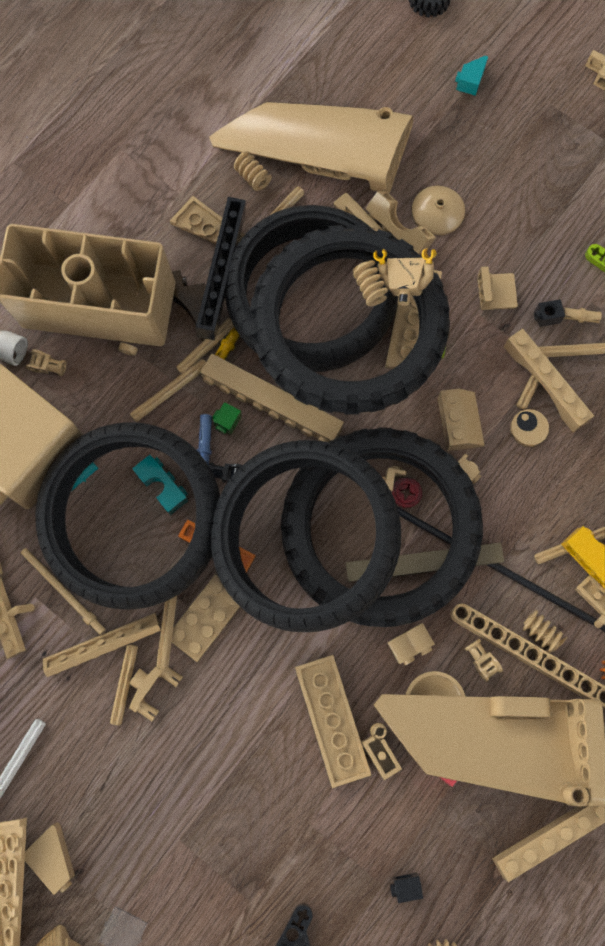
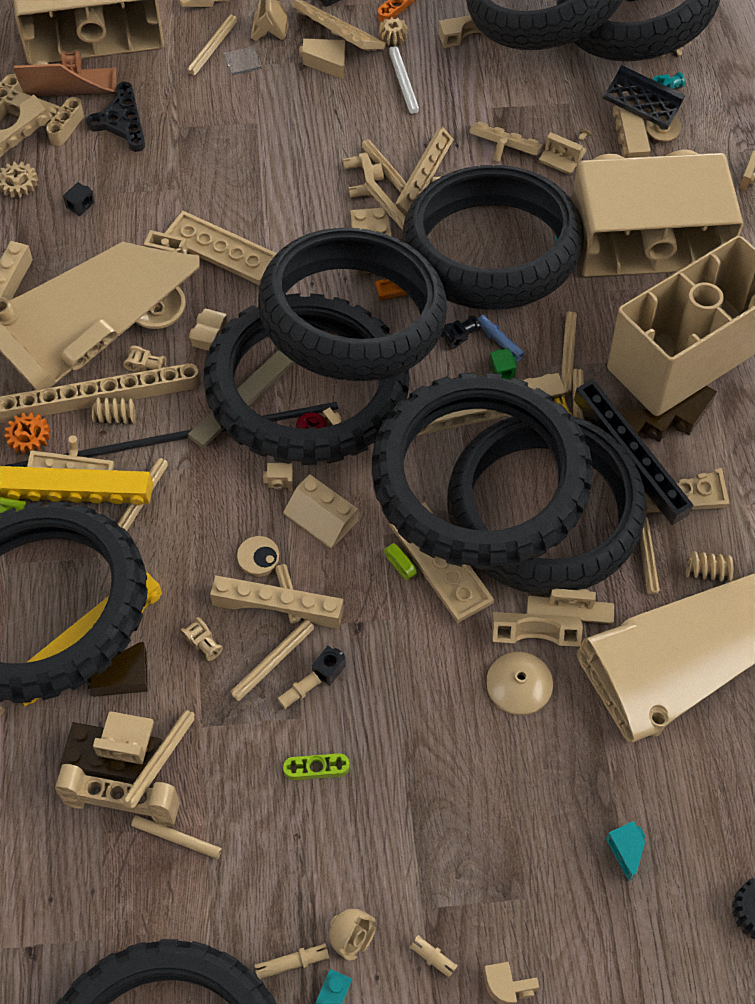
camera: 135 degrees right, 15 degrees down
(369, 283) = (490, 487): tan piece -> none
(406, 275) = (468, 512): tan torso -> none
(496, 290) = (395, 645): tan bracket -> none

